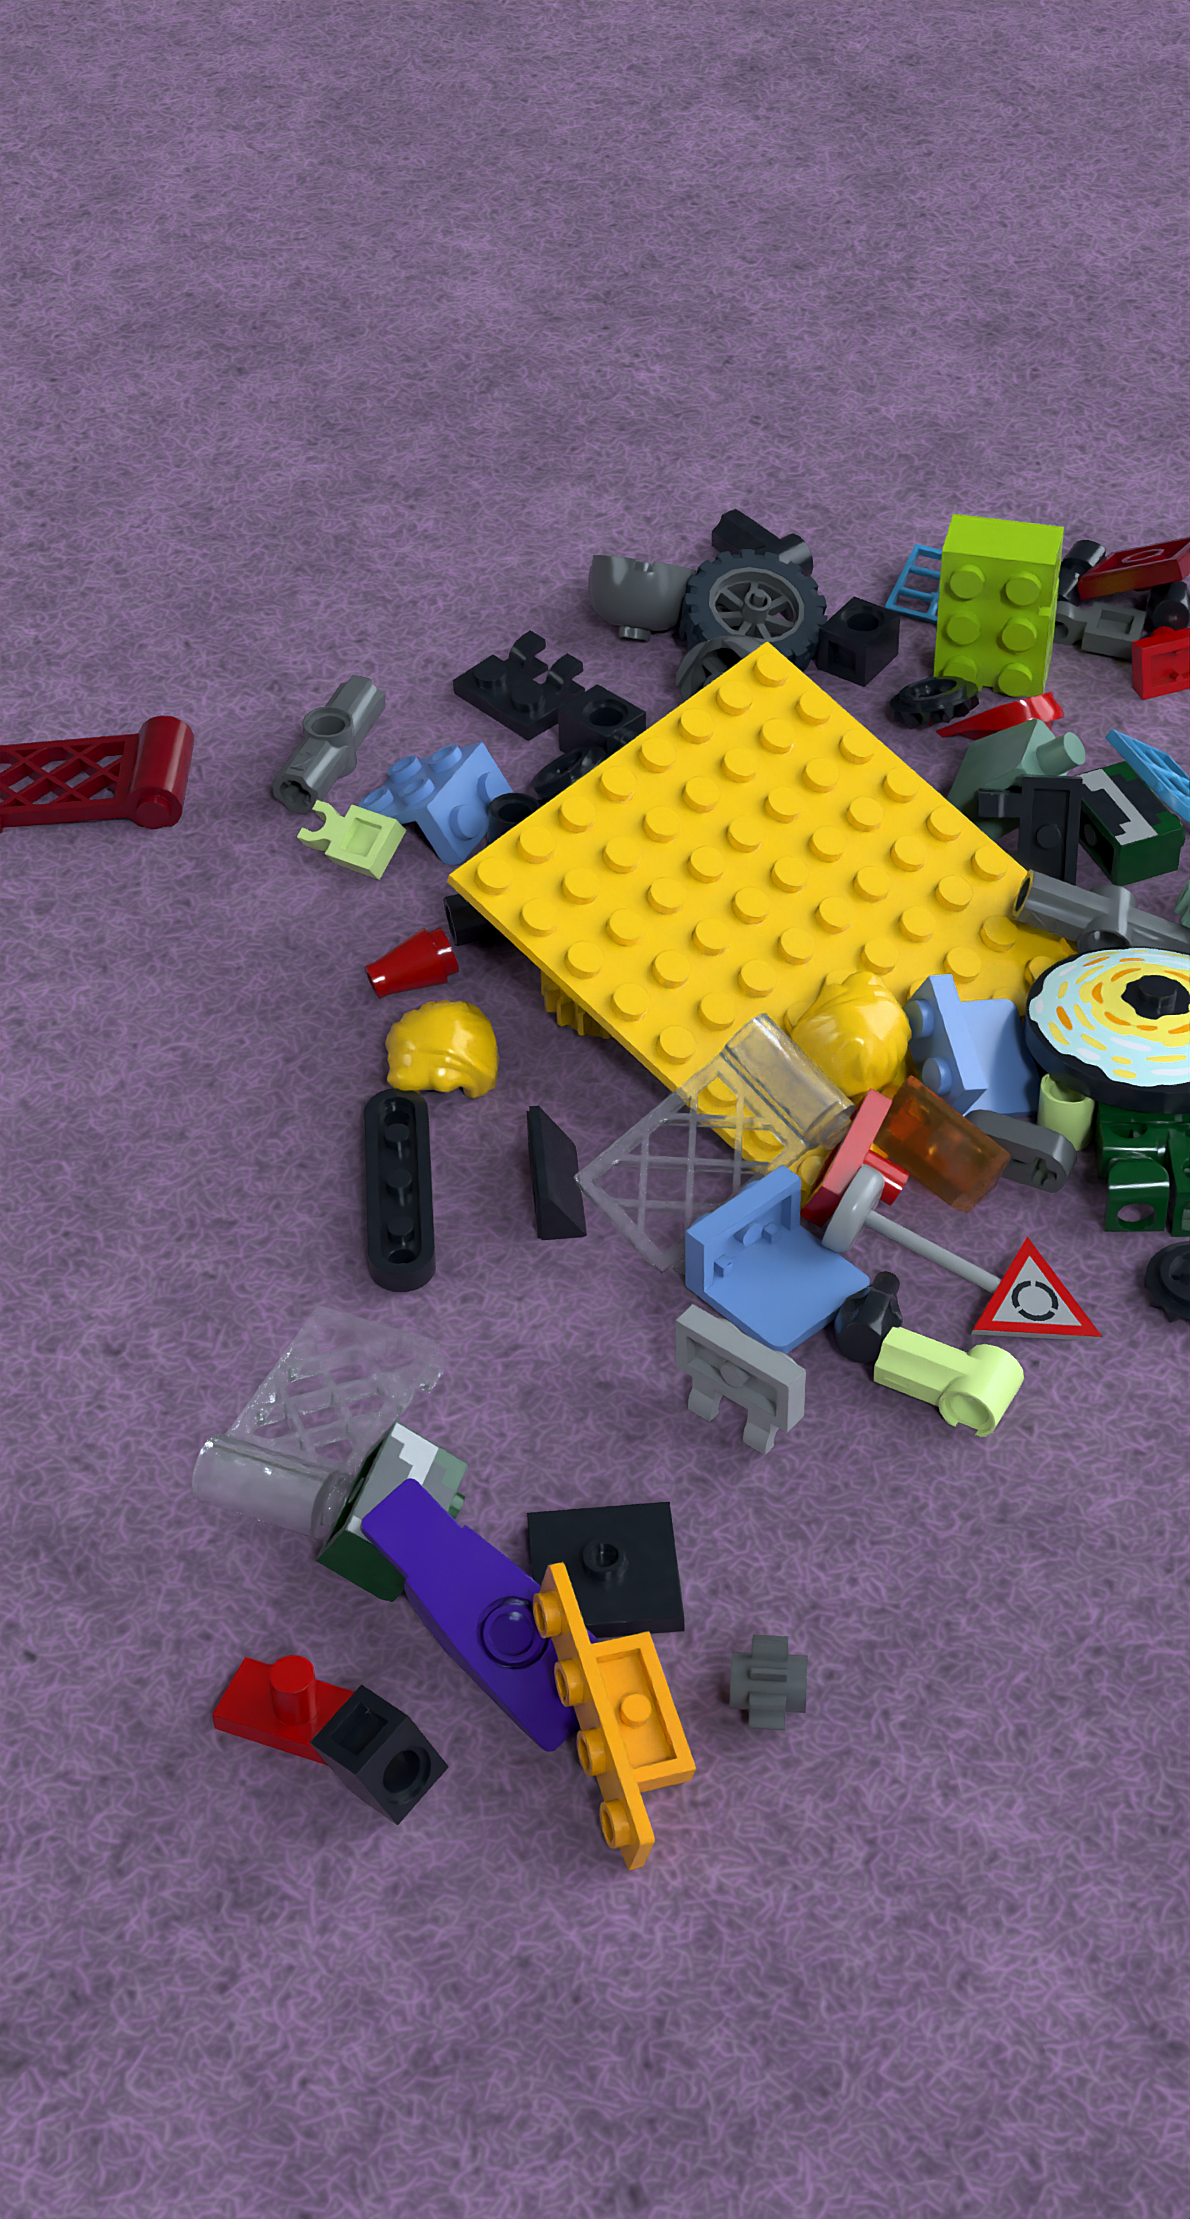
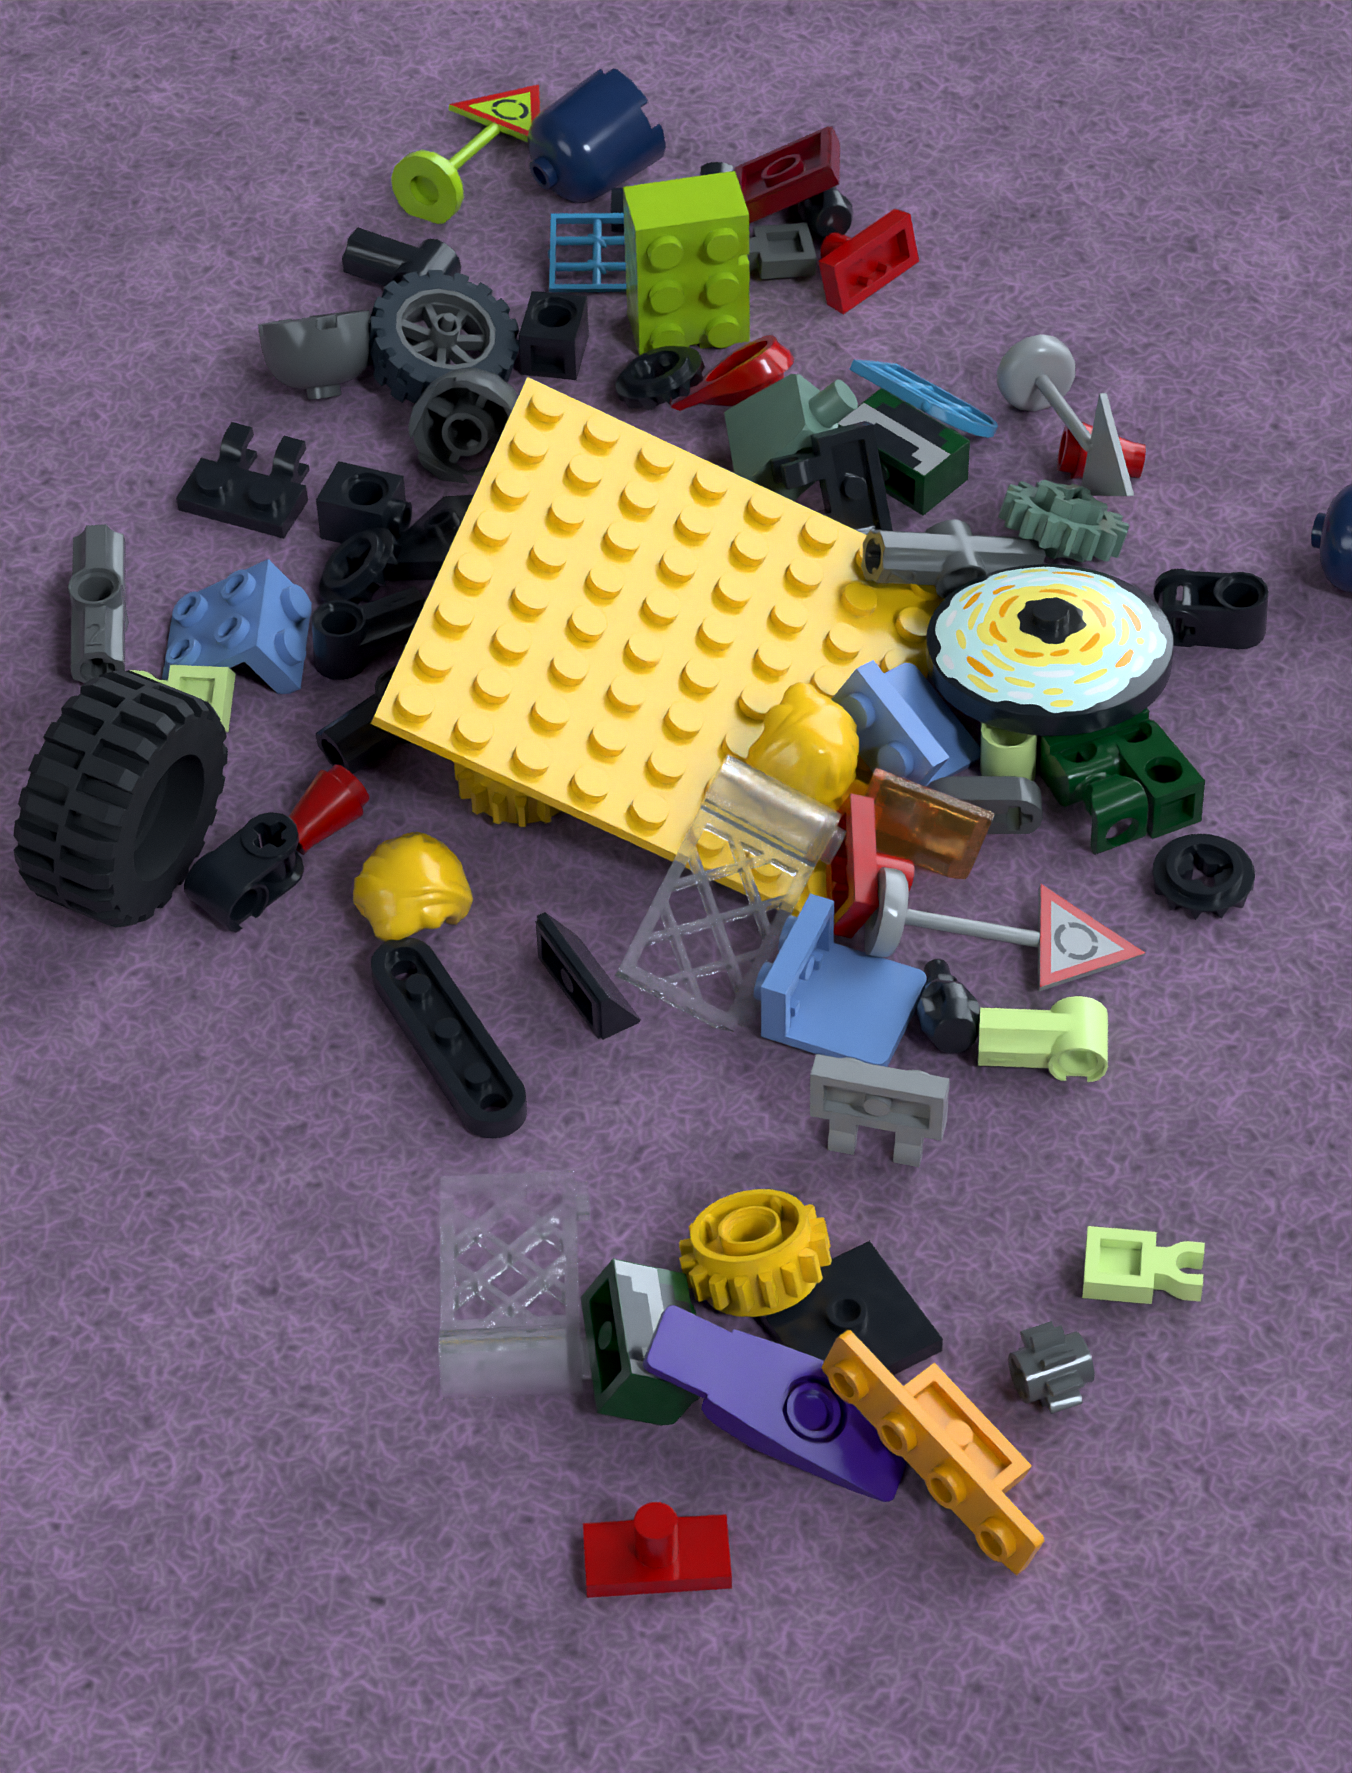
camera: 25 degrees left, 5 degrees up
(179, 852) = (120, 798): none -> black tyre
(311, 995) = (243, 877): none -> black piece
(379, 1754) = (767, 1560): black brick -> none
(546, 1470) = (755, 1252): none -> yellow gear
(823, 493) = (430, 184): none -> lime piece
(914, 1616) = (1129, 1266): none -> yellowish green plate
(986, 481) = (593, 138): none -> dark blue cylinder

